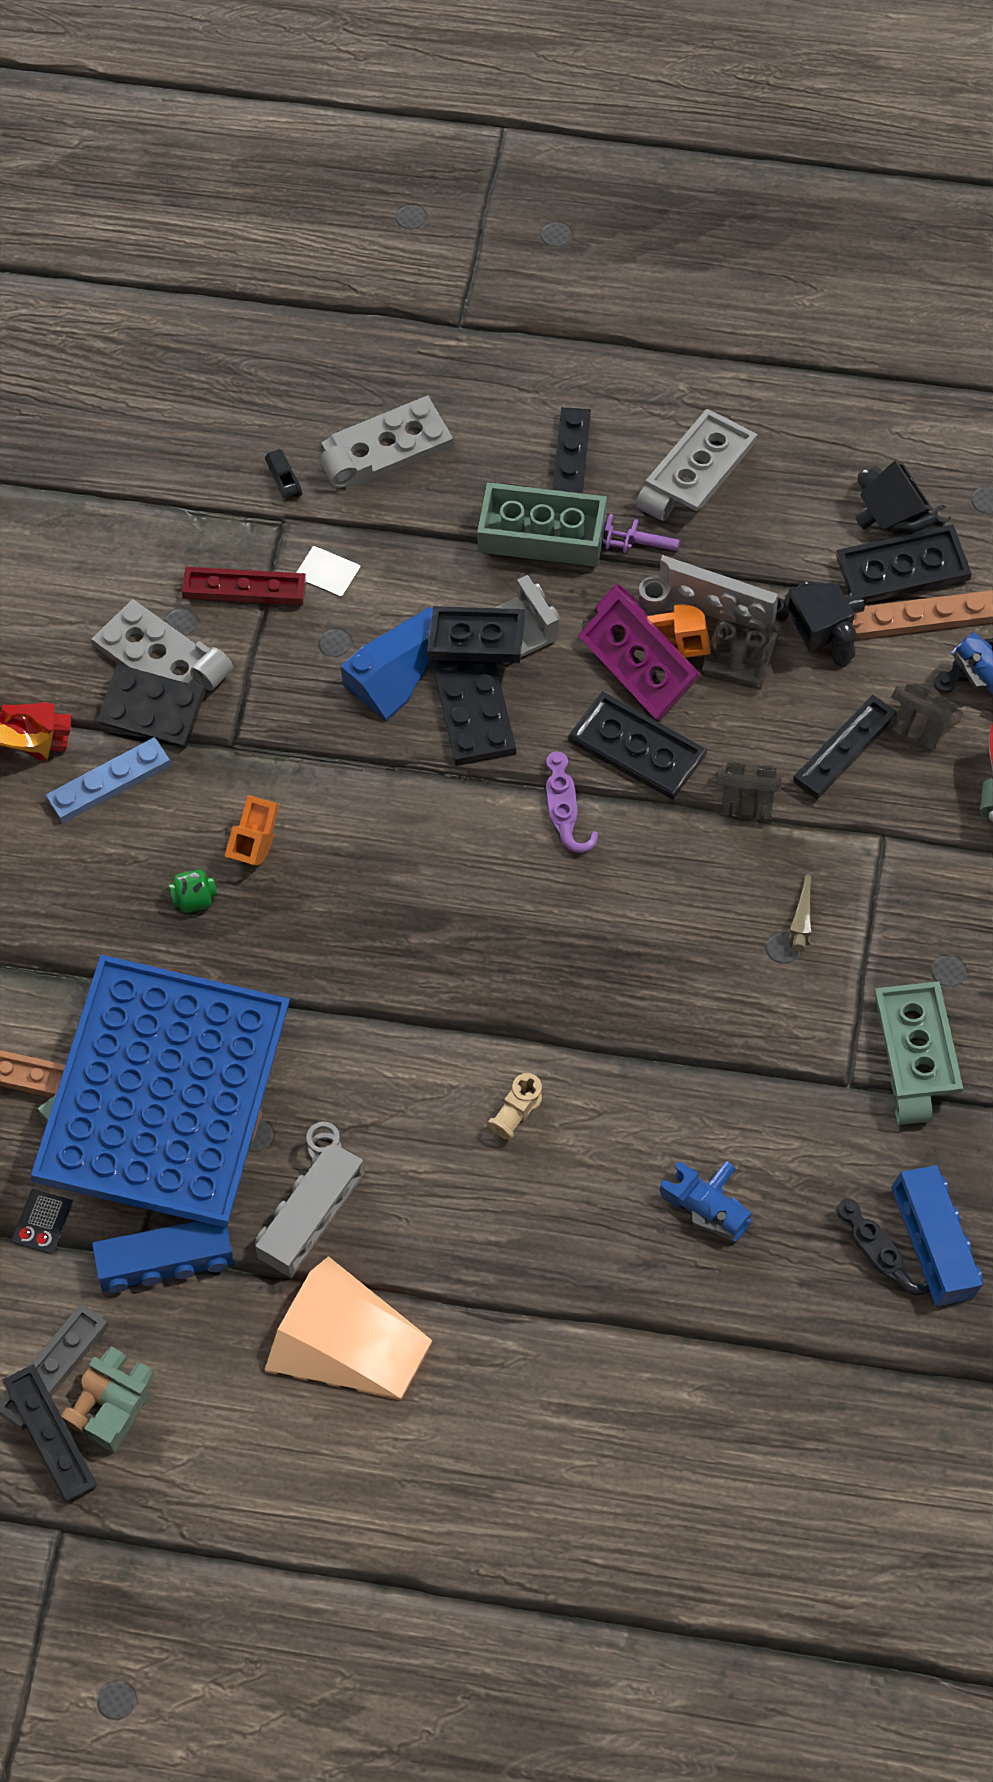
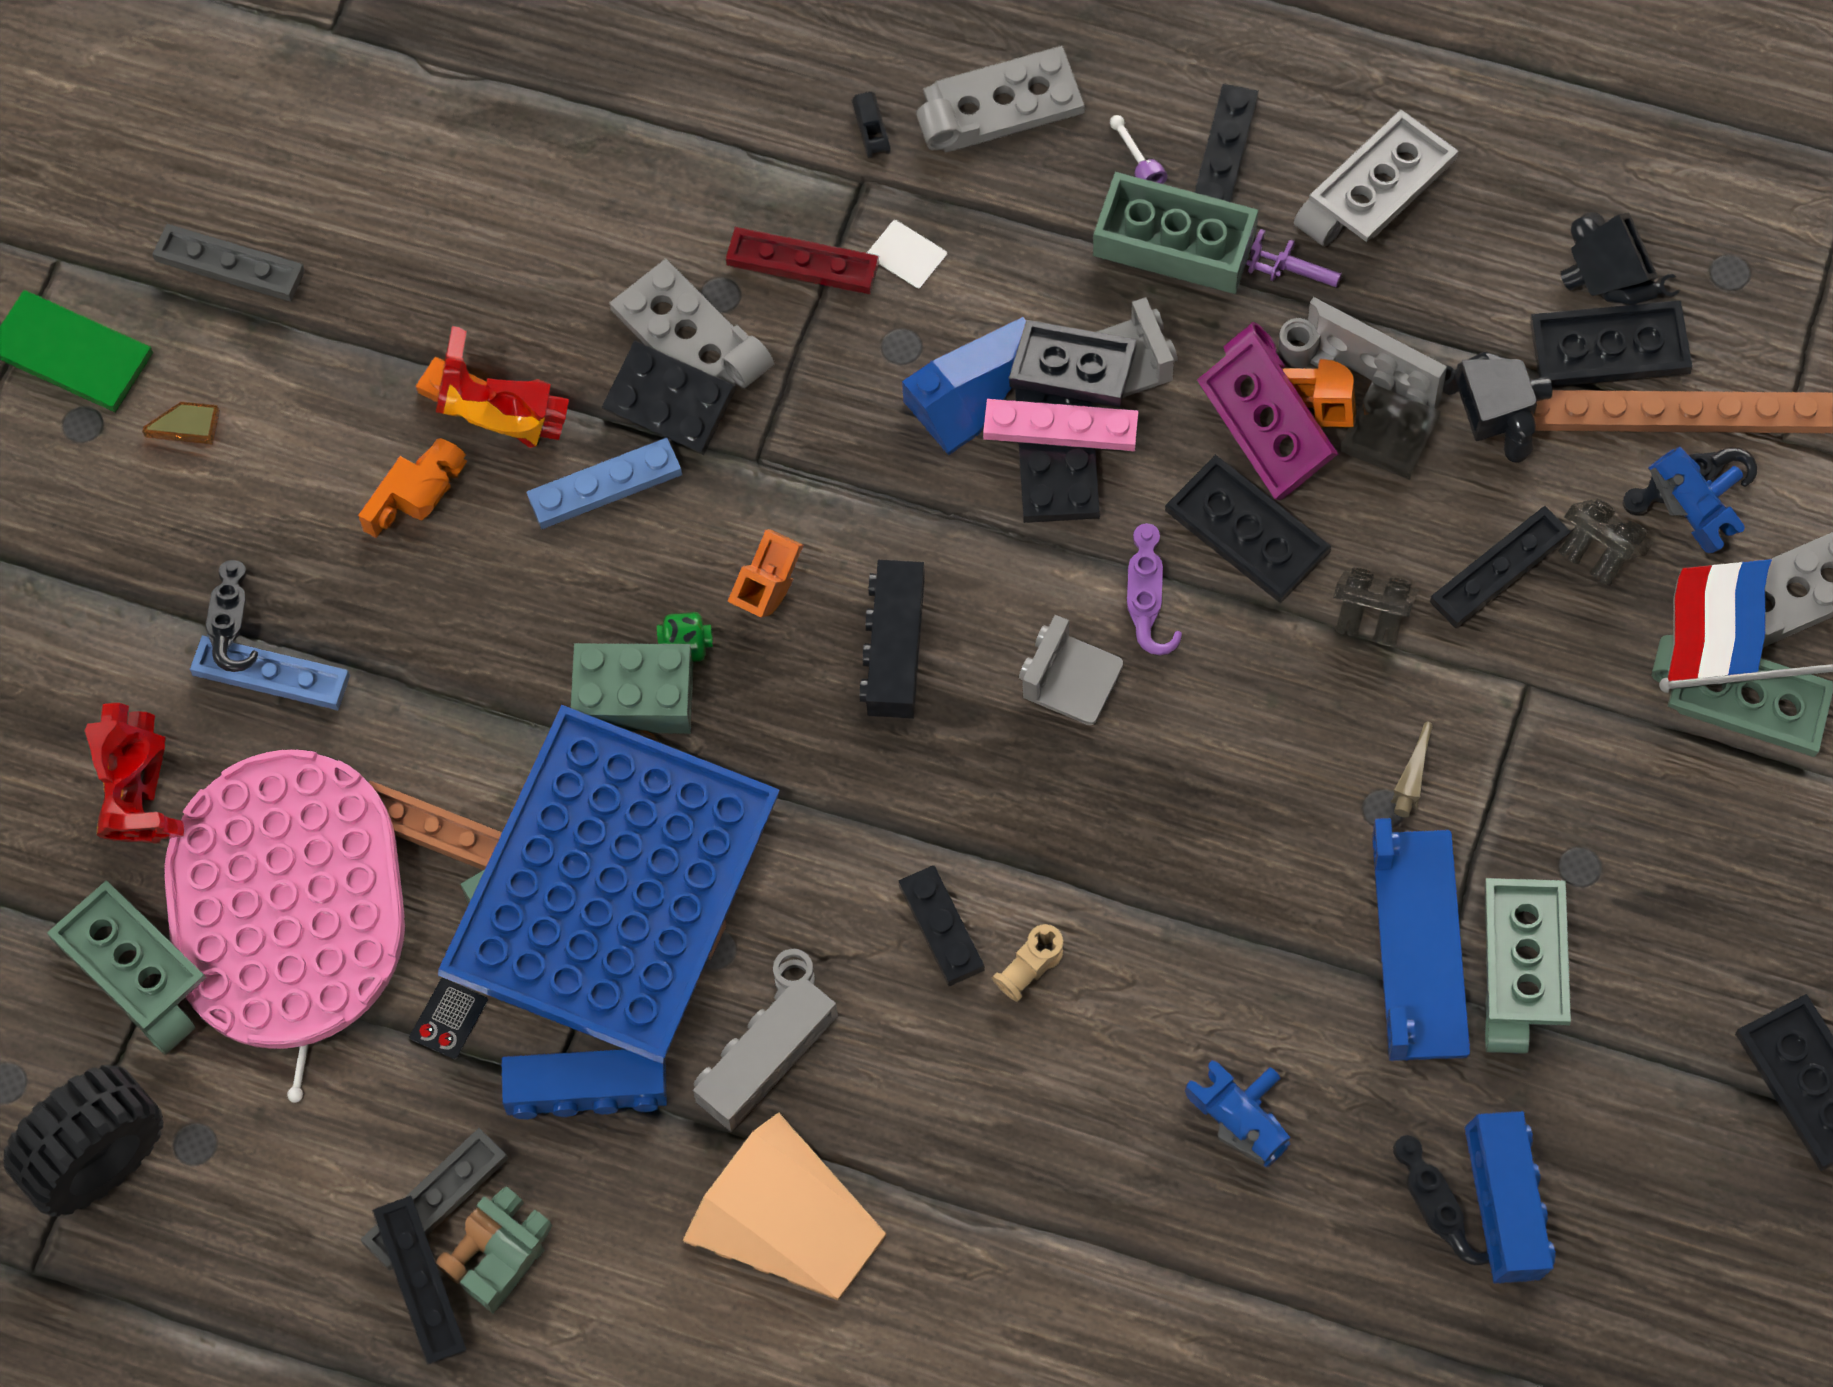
camera: 10 degrees right, 5 degrees up
(158, 932) = (635, 685): none -> sand green brick
(365, 868) = (894, 639): none -> black brick
(439, 1089) = (941, 925): none -> black plate
(474, 683) = (1060, 425): none -> bright pink plate
(511, 876) = (1069, 674): none -> light grey bracket
(512, 478) = (1146, 169): none -> hinge
(830, 1047) = (1420, 944): none -> blue bracket

